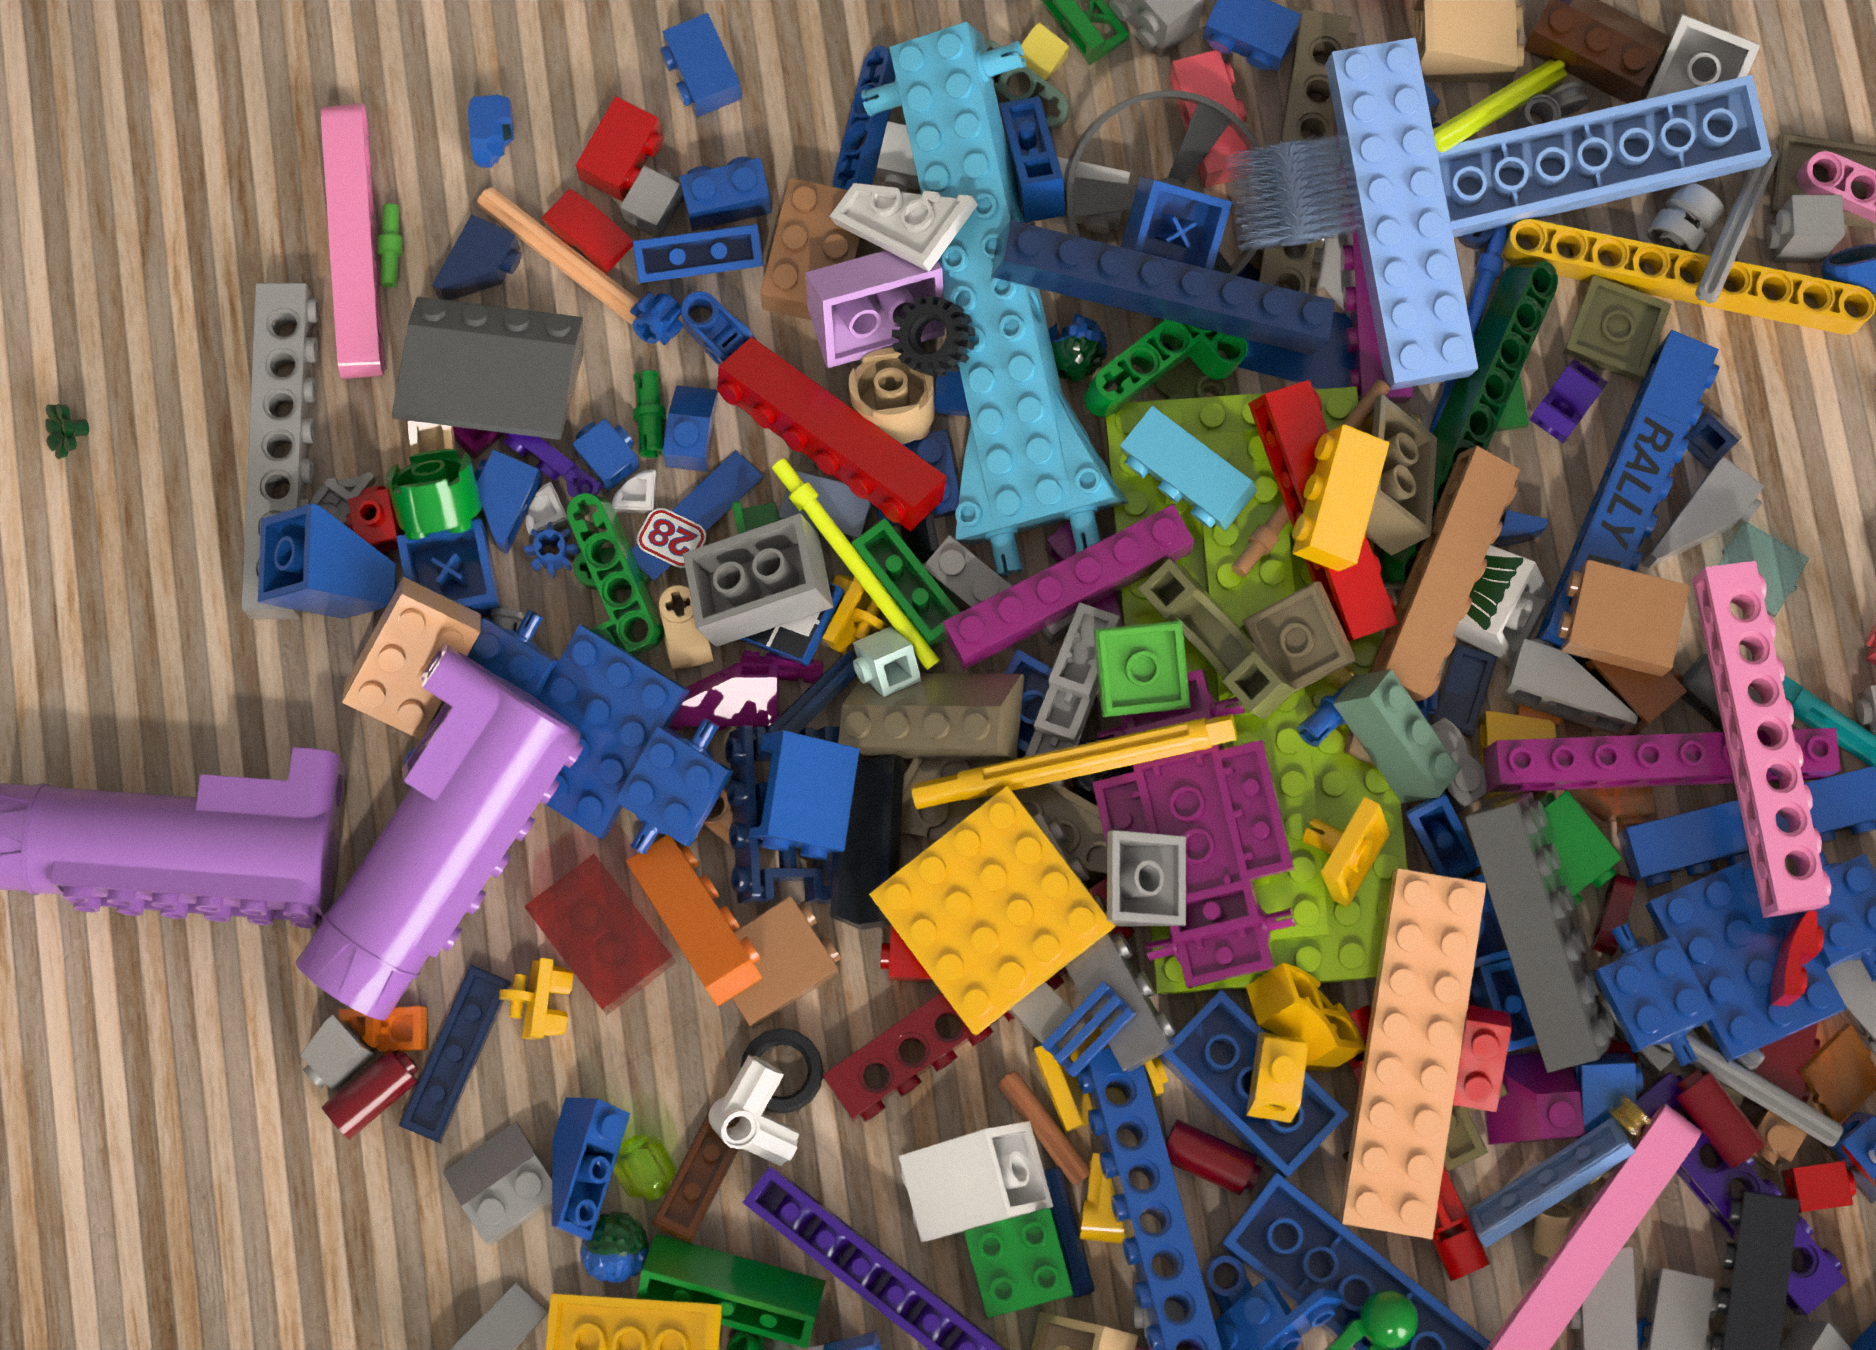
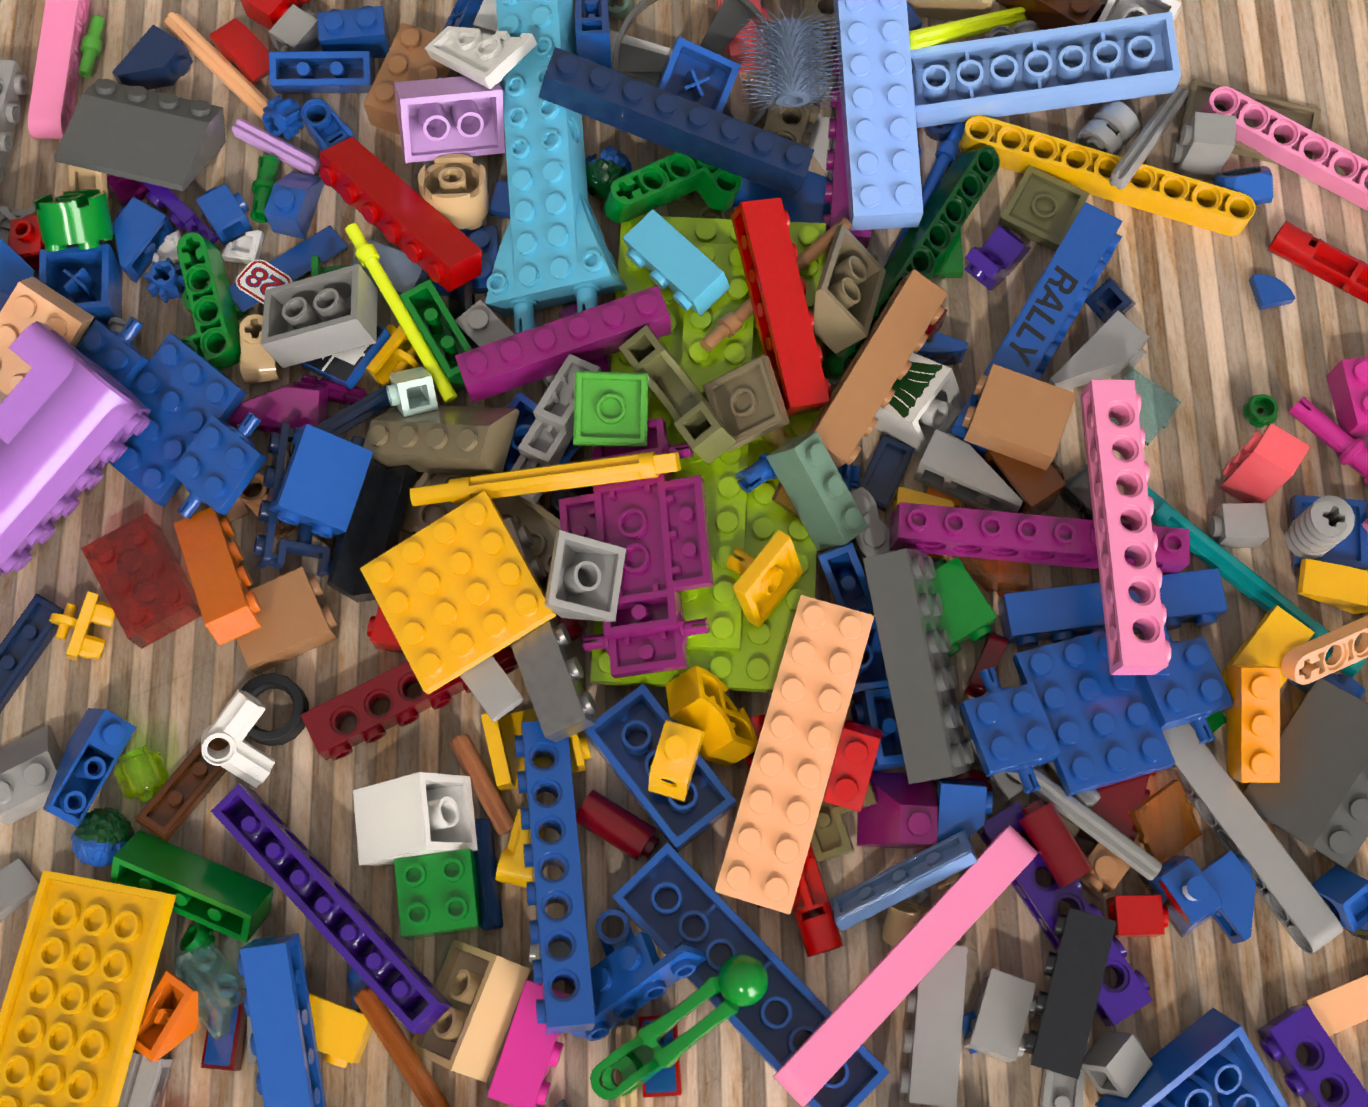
camera: 10 degrees right, 5 degrees down
(651, 355) = (276, 146): none -> lavender axle
(912, 327) = (475, 132): black tyre -> none
(1084, 1008) = (510, 688): blue tile -> none
(1339, 497) = (791, 289): yellow brick -> none
(1630, 1116) = (977, 831): clear yellow bush -> none
(1798, 948) = (1134, 711): red slope -> none

